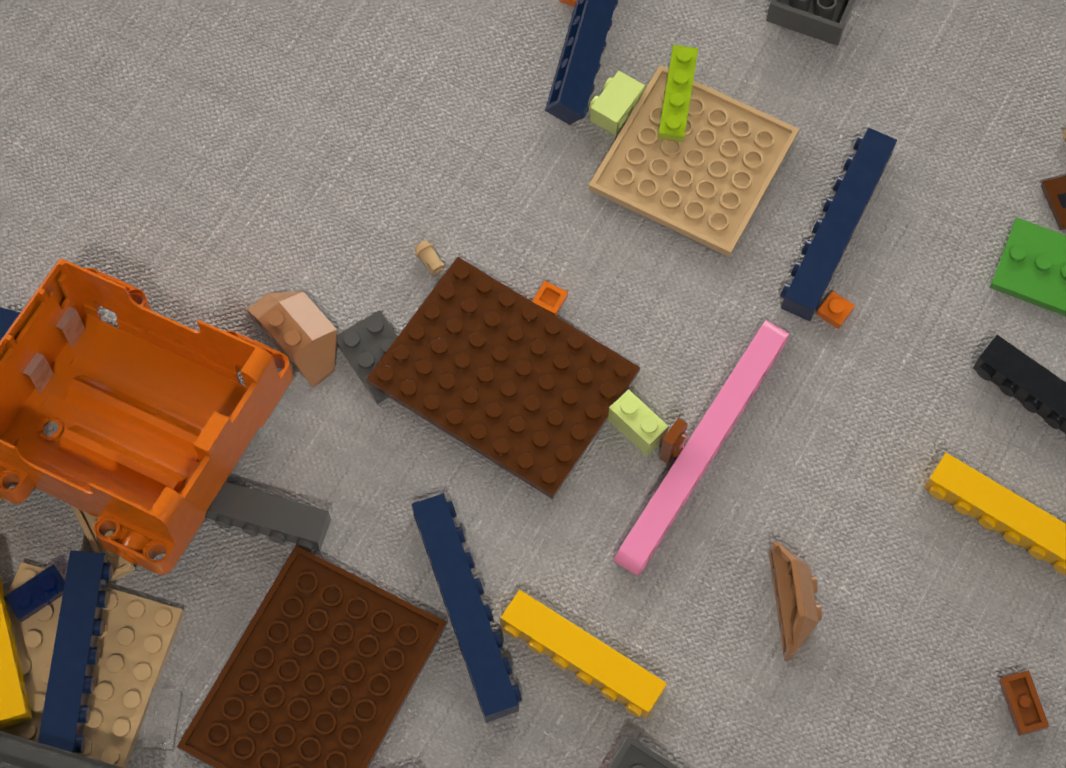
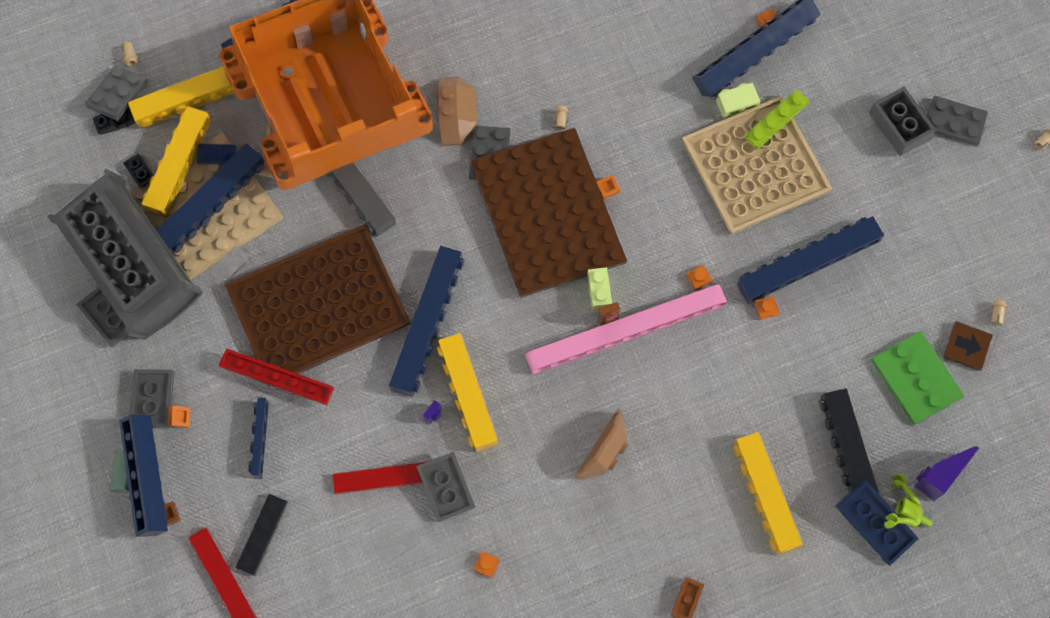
camera: 40 degrees right, 5 degrees up
(562, 709) = (433, 412): none -> dark purple plate
(734, 329) = (699, 277): none -> orange plate

